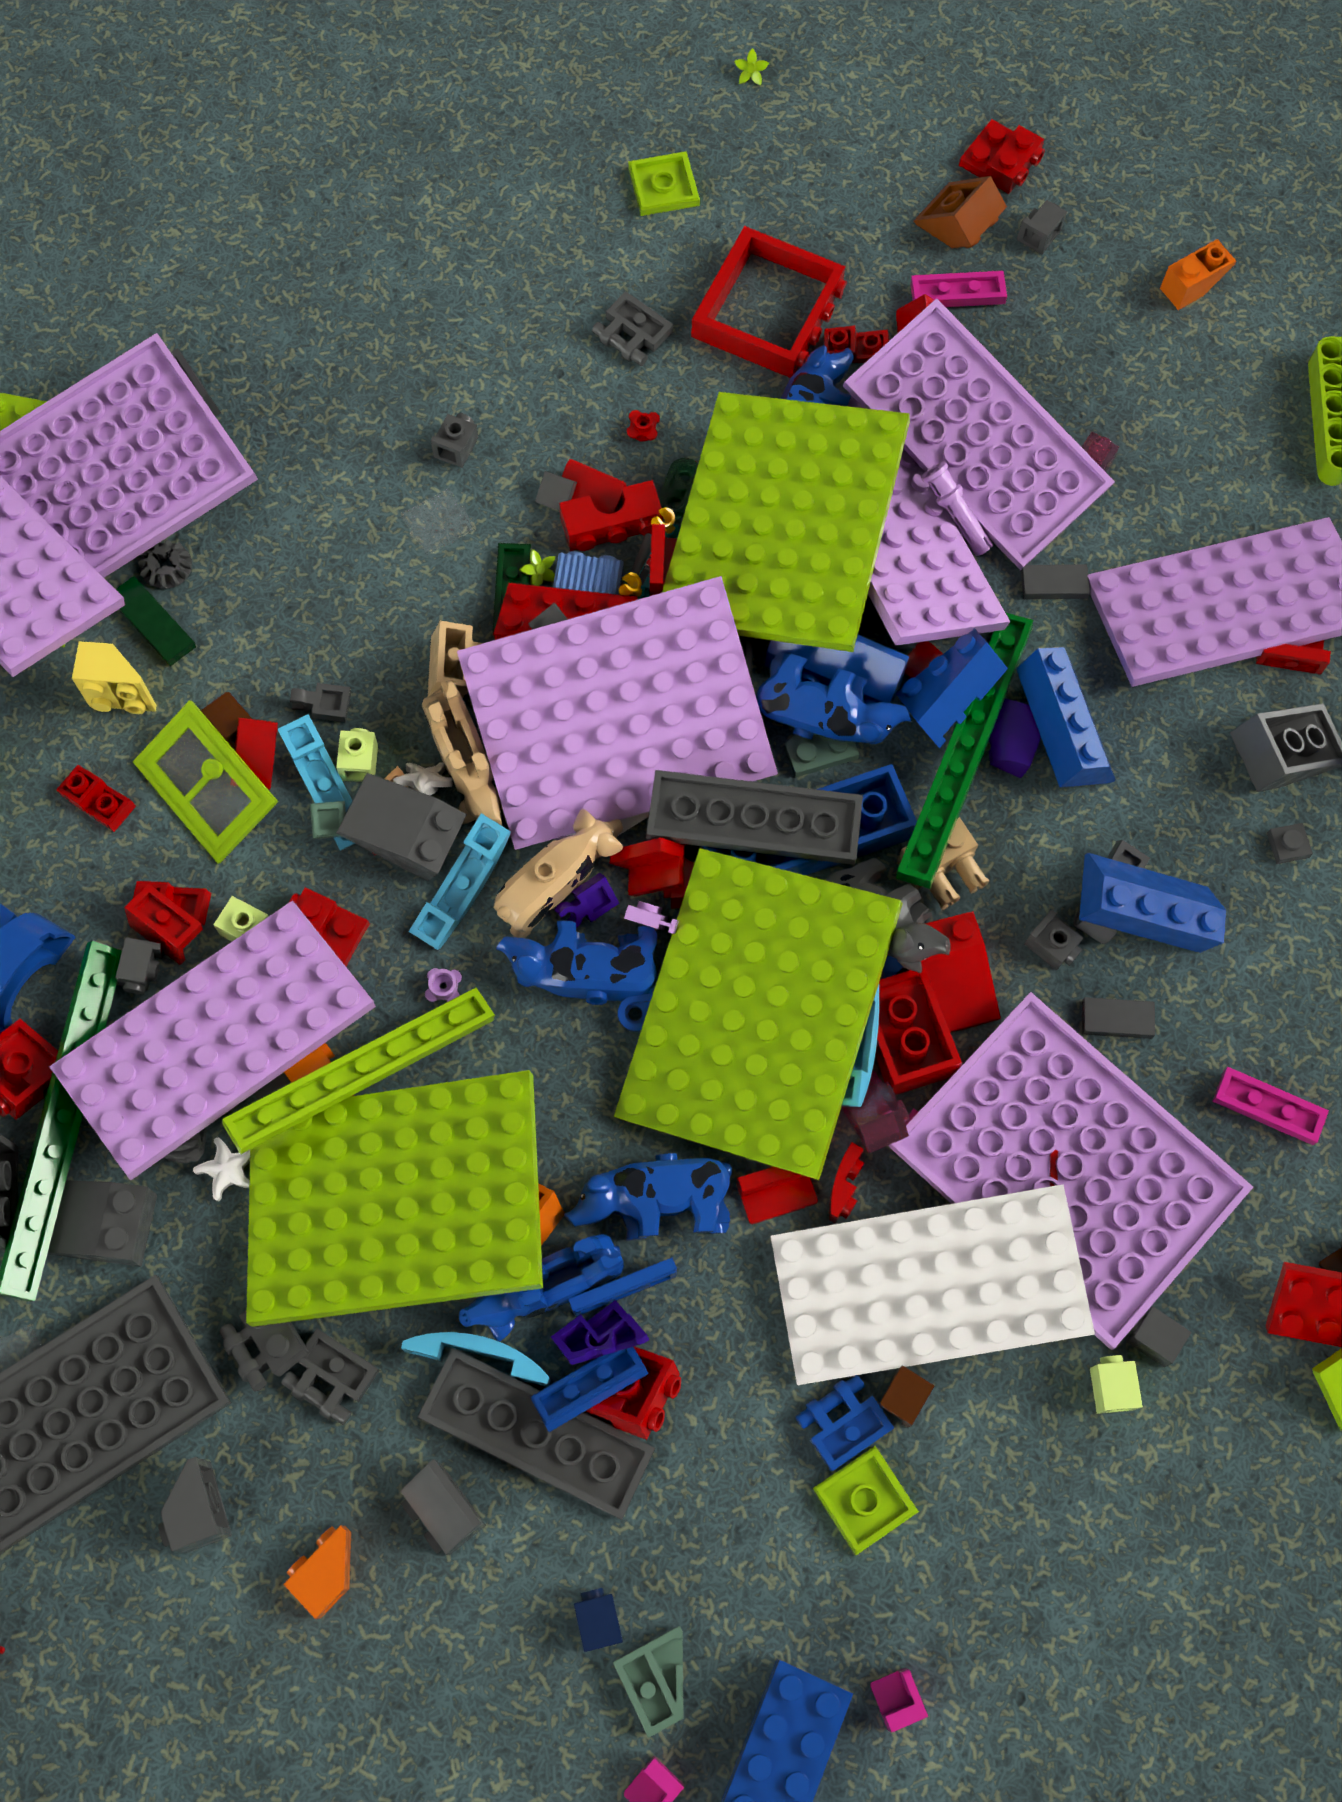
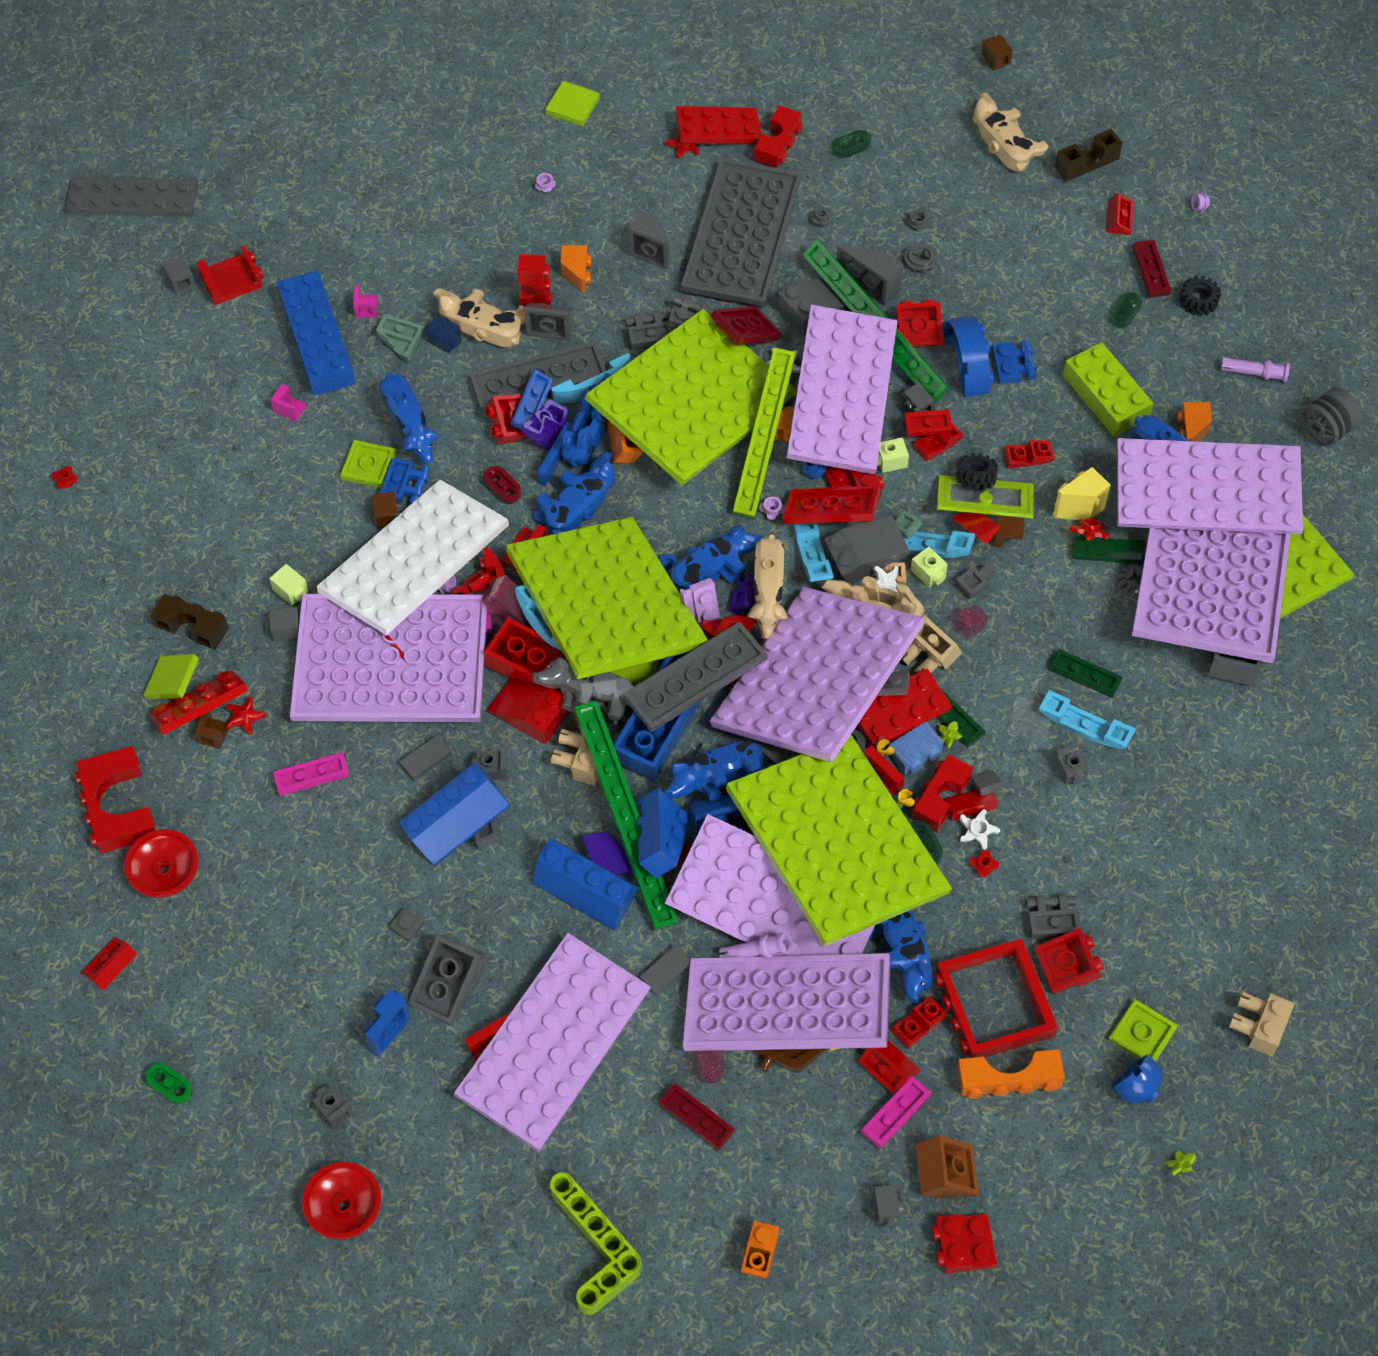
camera: 140 degrees right, 10 degrees down
(143, 648) = (1090, 528): none -> red animal
(163, 811) = (976, 472): none -> black tyre
(210, 1784) = (545, 182): none -> lavender plate
(220, 1250) = (745, 325): none -> dark red plate
(331, 518) = (1085, 673): none -> dark green tile
(382, 659) = (971, 621): none -> clear pink plate
(384, 910) = (831, 505): none -> red plate
(391, 463) = (1085, 724): none -> medium azure slope
(418, 1570) = (535, 281): none -> red arch
(533, 1596) = (481, 319): none -> tan animal
(553, 94) = (1268, 1030): none -> tan brick
(613, 459) = (978, 829): none -> white animal
(664, 277) = (1069, 960): none -> red plate
(719, 136) = (1139, 1081): none -> blue cylinder
(726, 1305) = (503, 486): none -> dark red plate
(770, 1506) = (408, 416): none -> blue animal
(795, 217) = (980, 1078): none -> orange arch
(881, 1191) = (474, 583): none -> red plate
(1149, 428) = (696, 1117): none -> dark red plate
(1288, 1482) = (174, 612): none -> dark brown arch
(1296, 1248) = (244, 715): none -> red animal

